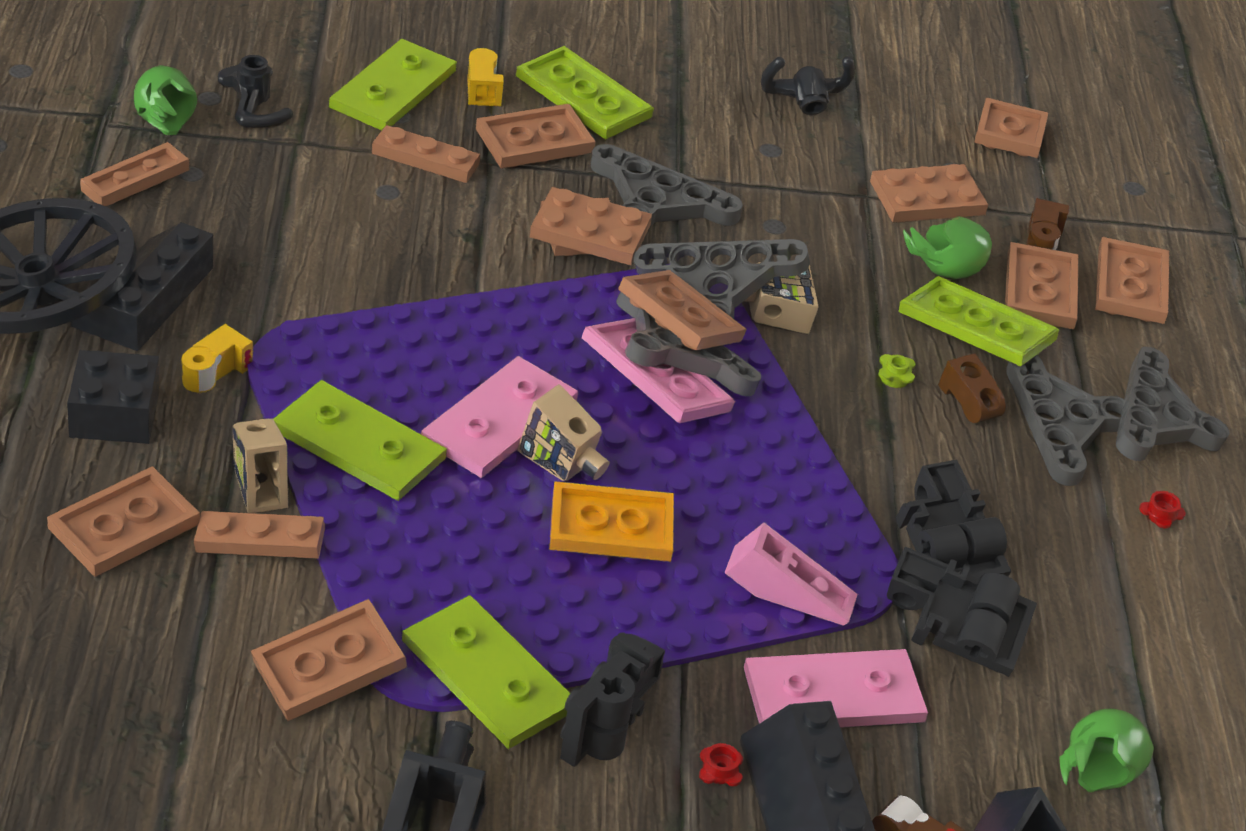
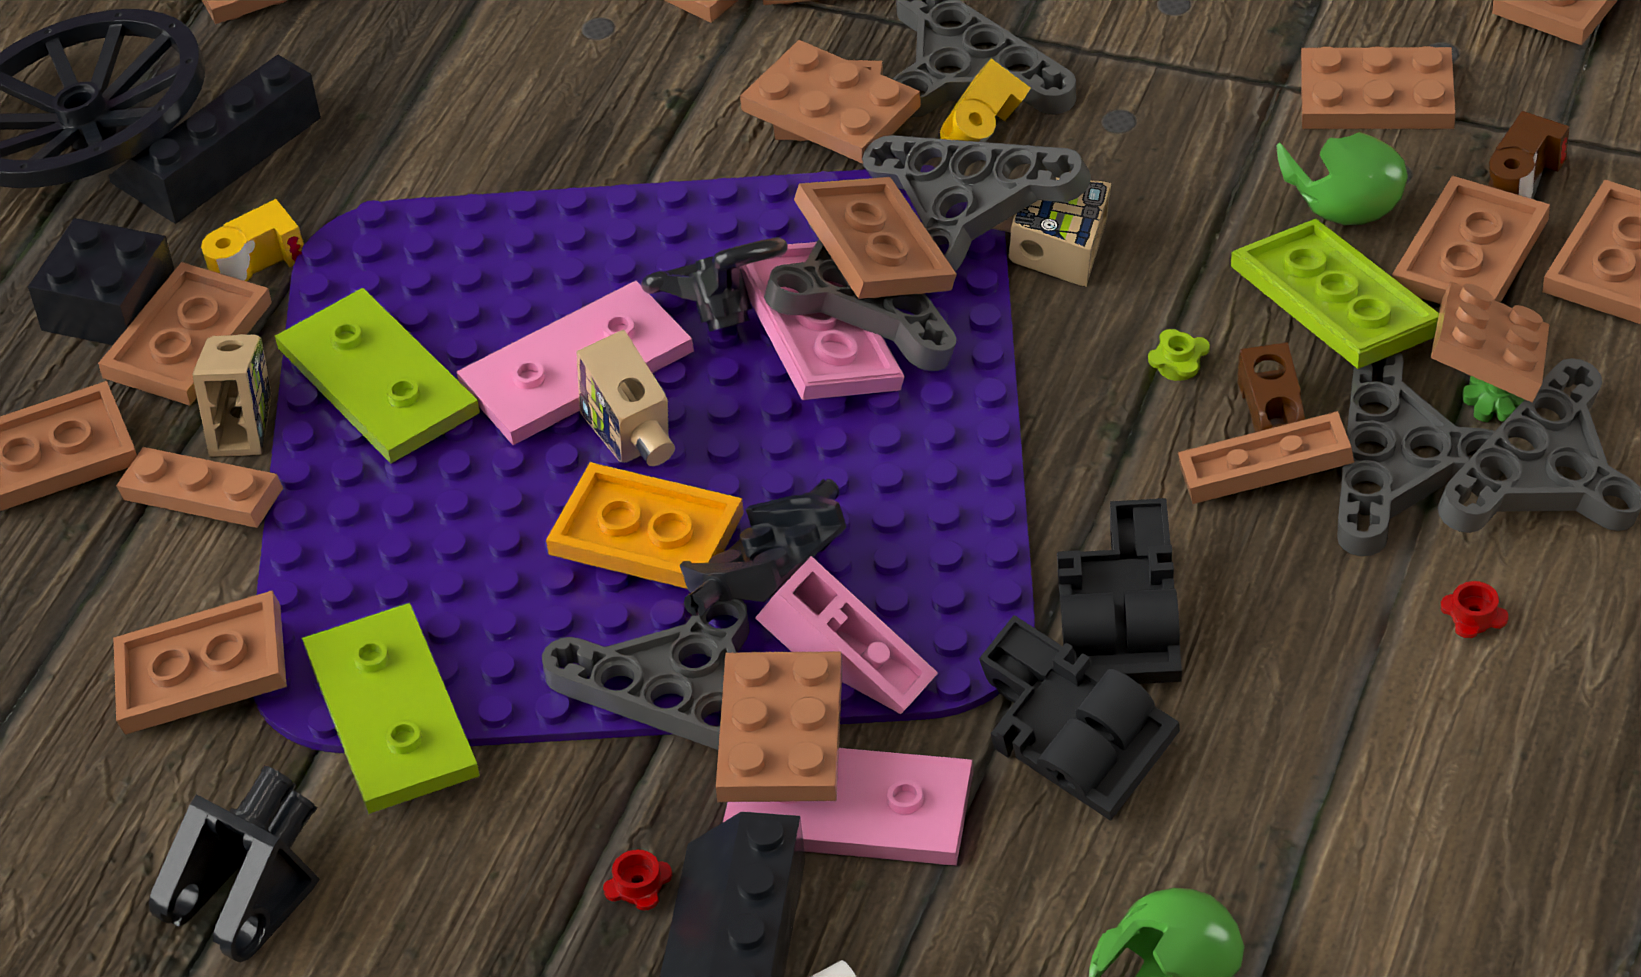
camera: 30 degrees right, 5 degrees up
(192, 427) = (171, 330): none -> nougat plate
(586, 352) = (716, 282): none -> black piece
(610, 700) = (532, 754): black plate -> none
(691, 218) = (989, 94): none -> yellow leg
(711, 626) = (655, 670): none -> dark grey beam
(716, 524) = (768, 552): none -> black plate
(784, 643) = (779, 727): none -> nougat plate
(990, 428) = (1265, 457): none -> nougat plate
(1099, 338) = (1491, 340): none -> nougat plate
(1102, 373) = (1489, 400): none -> bright green plant

